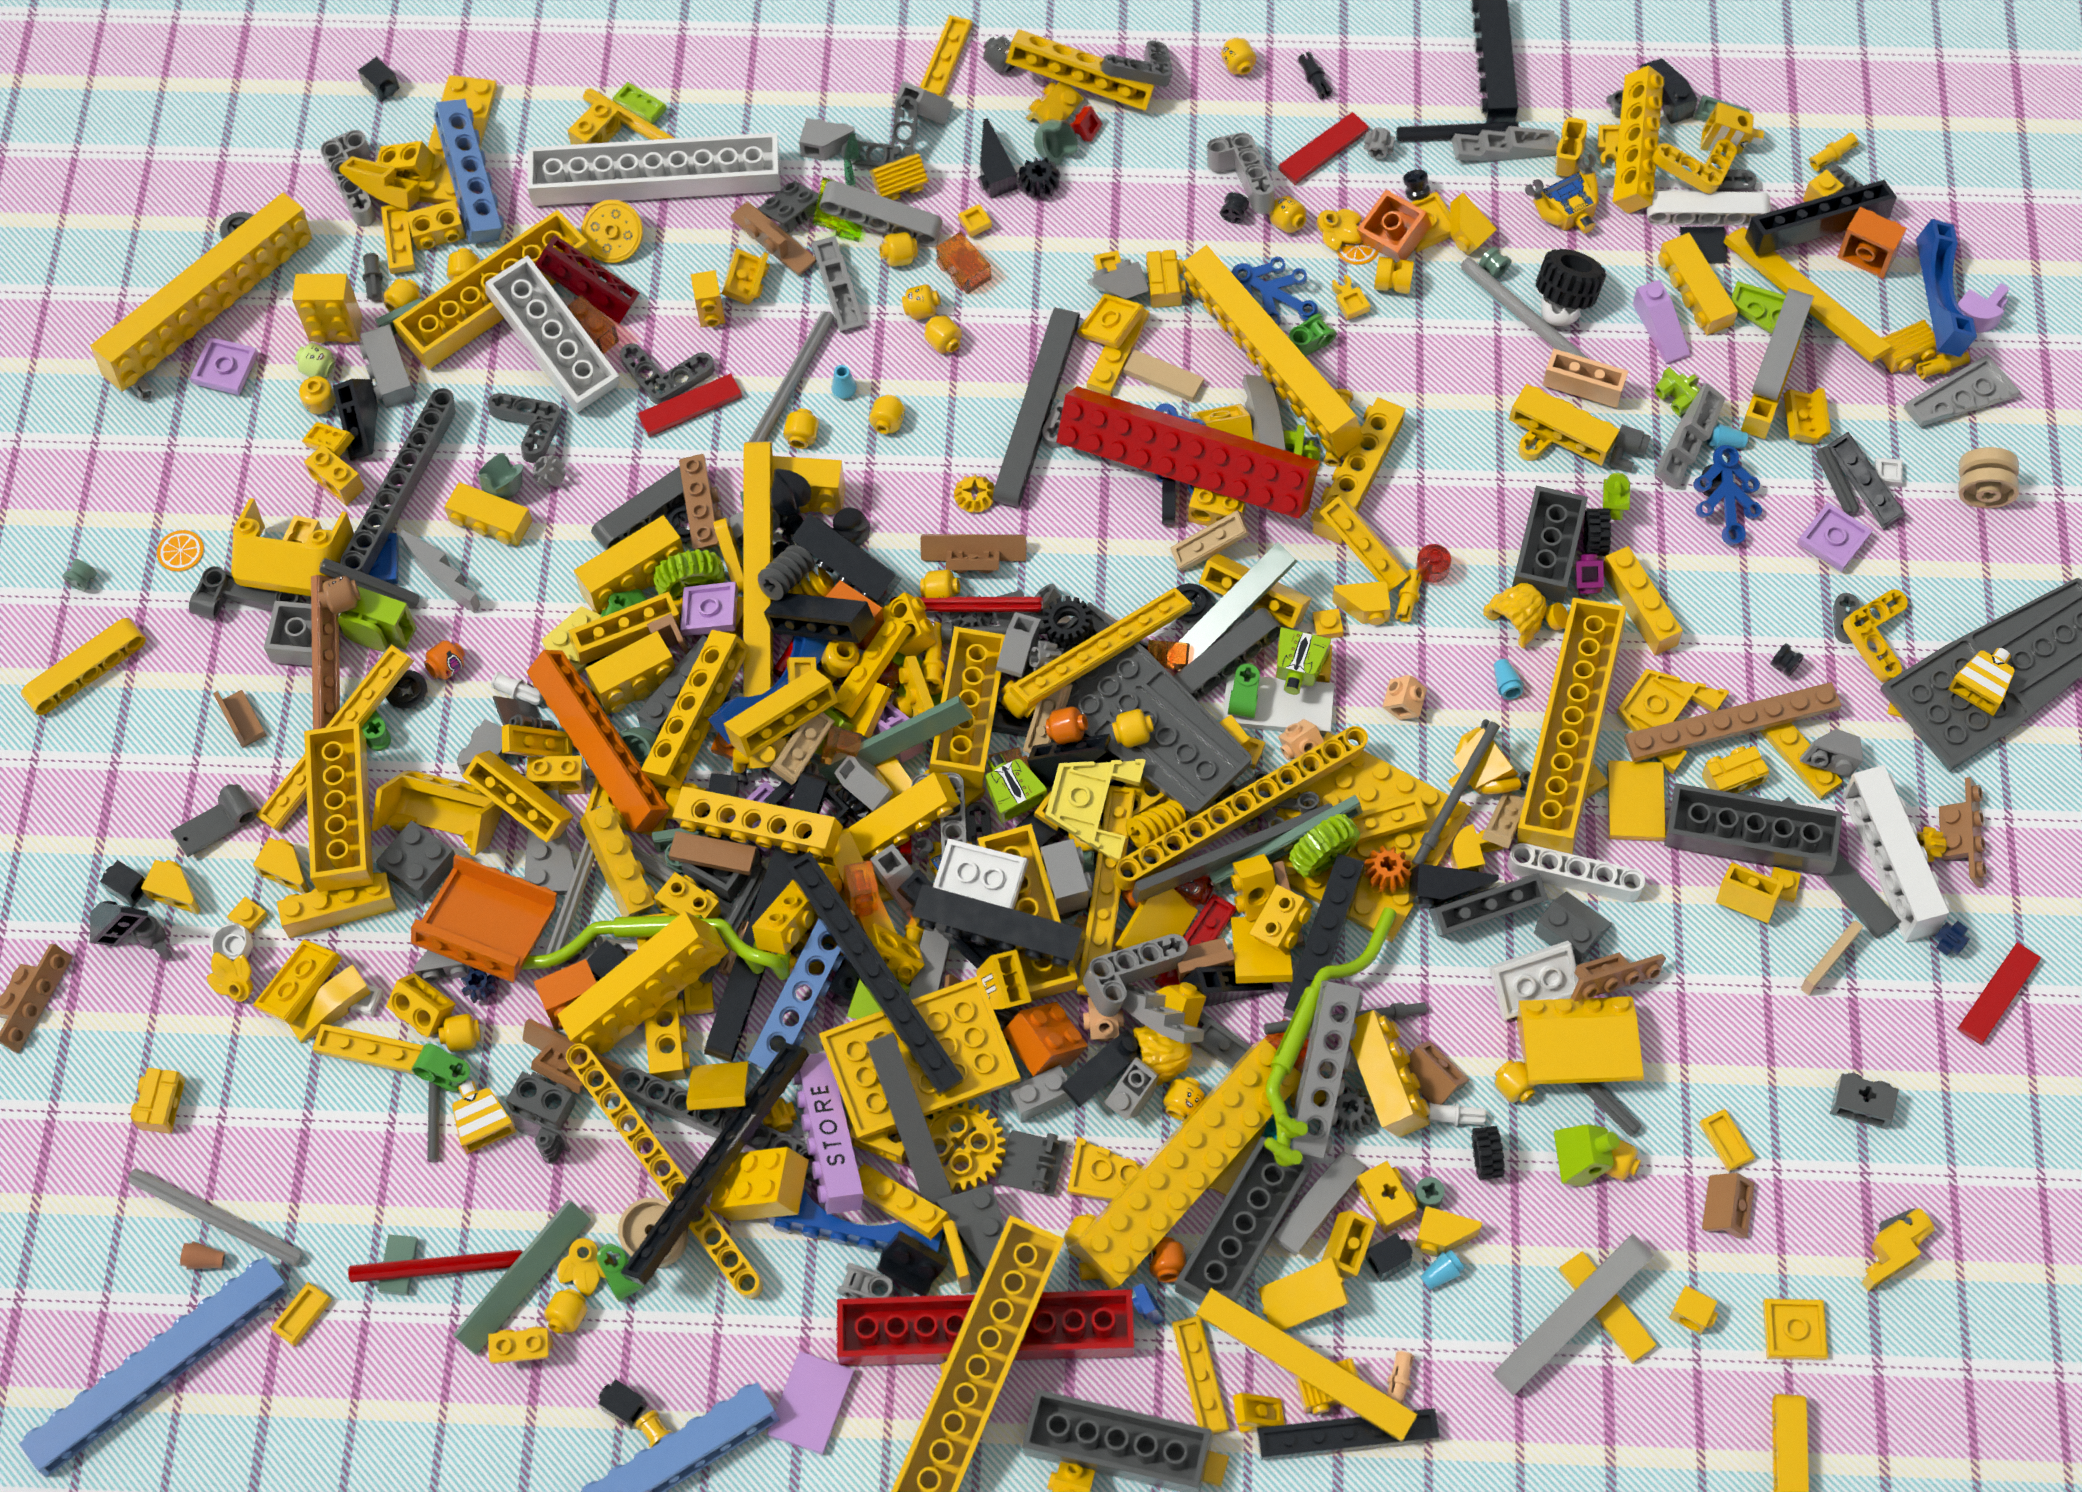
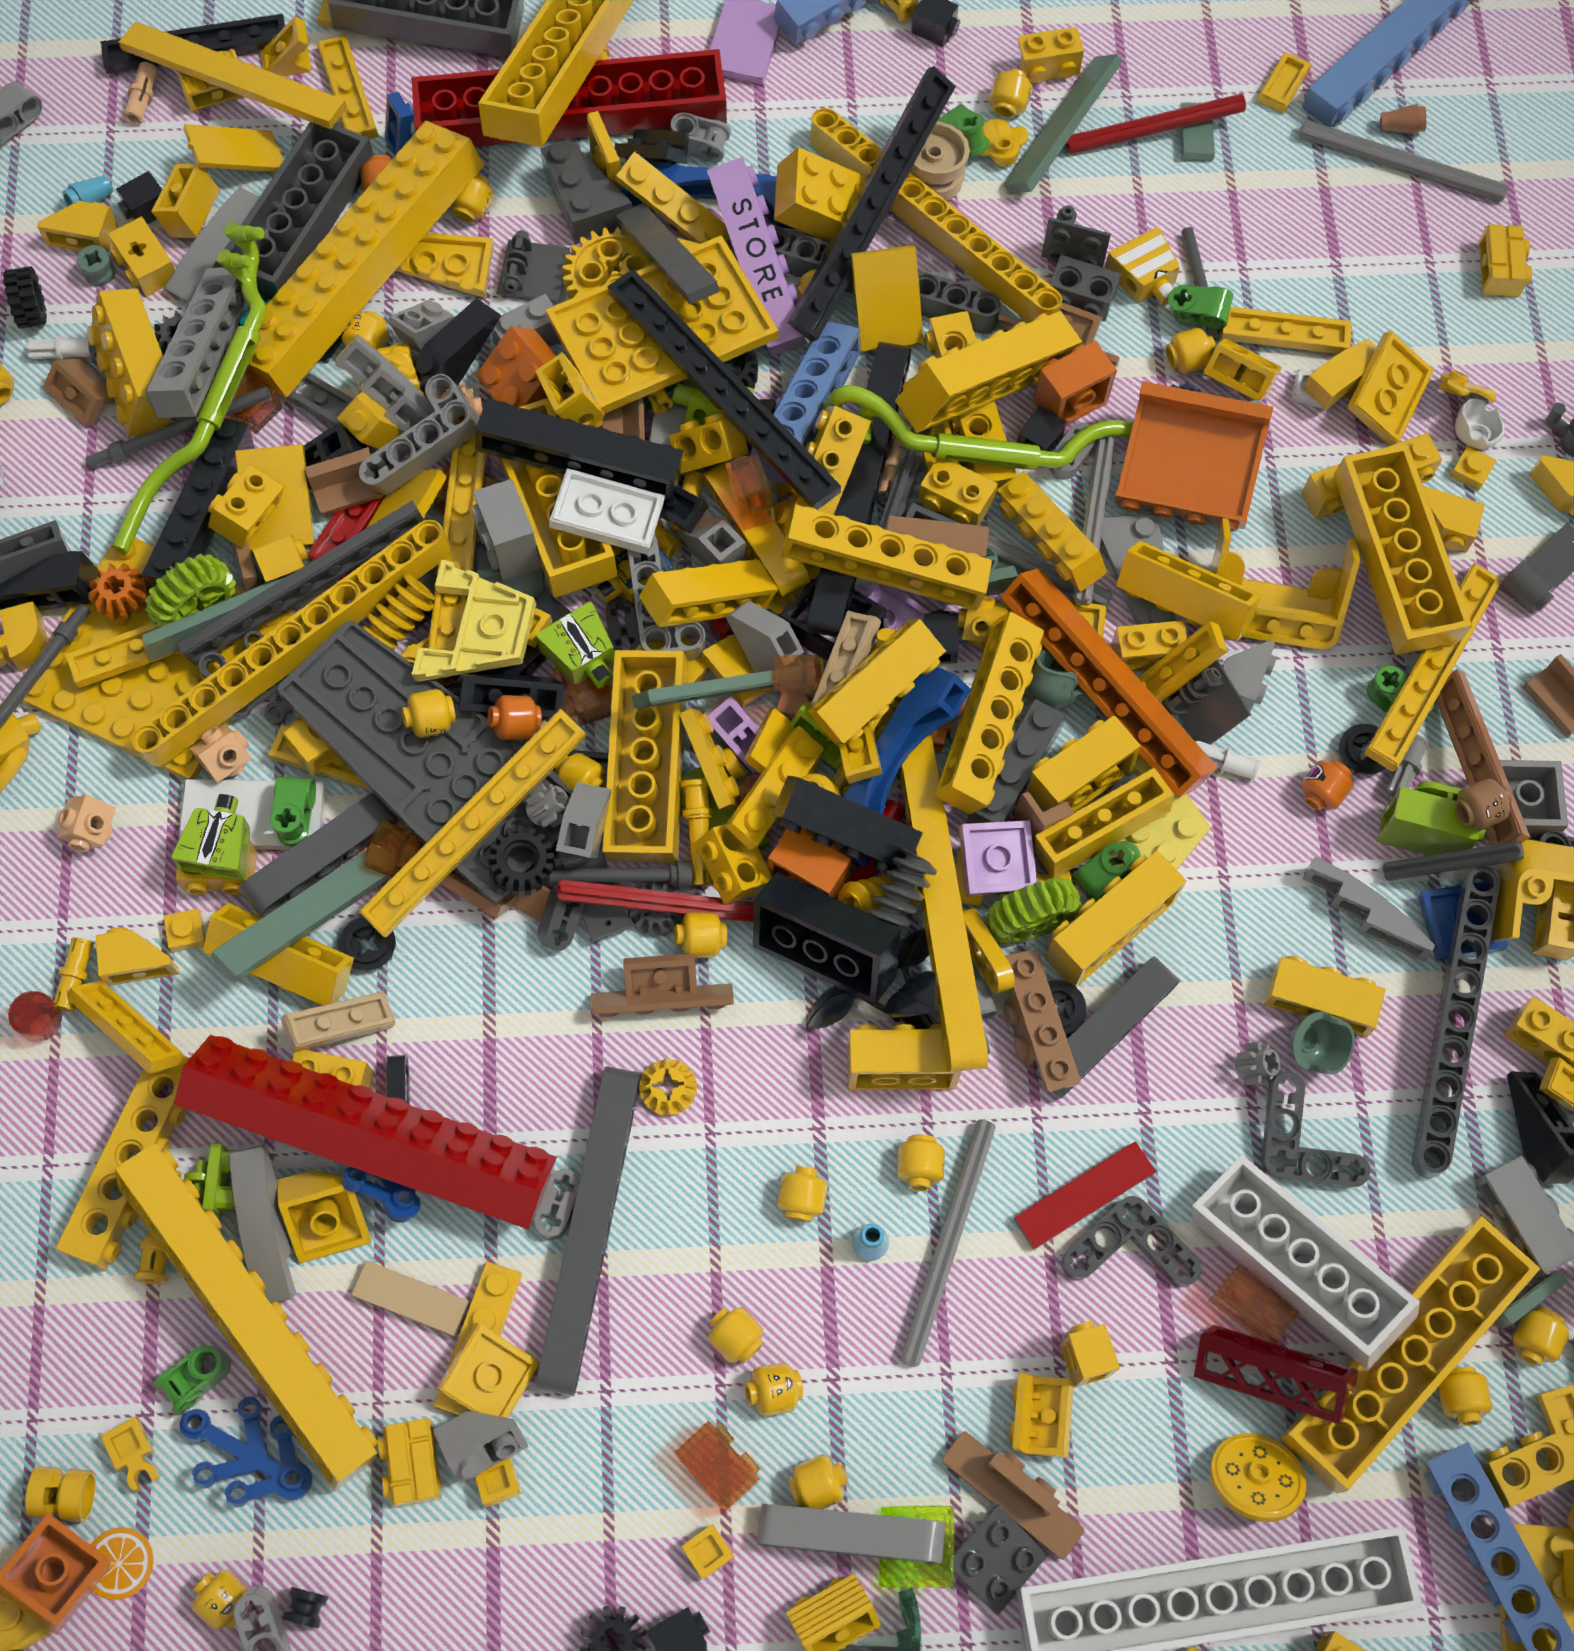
camera: 170 degrees right, 5 degrees up
(417, 861) = (1291, 532): dark grey brick -> none
(837, 284) = (903, 1417): light grey slope -> none
(1341, 230) = (136, 1584): yellow plate -> none

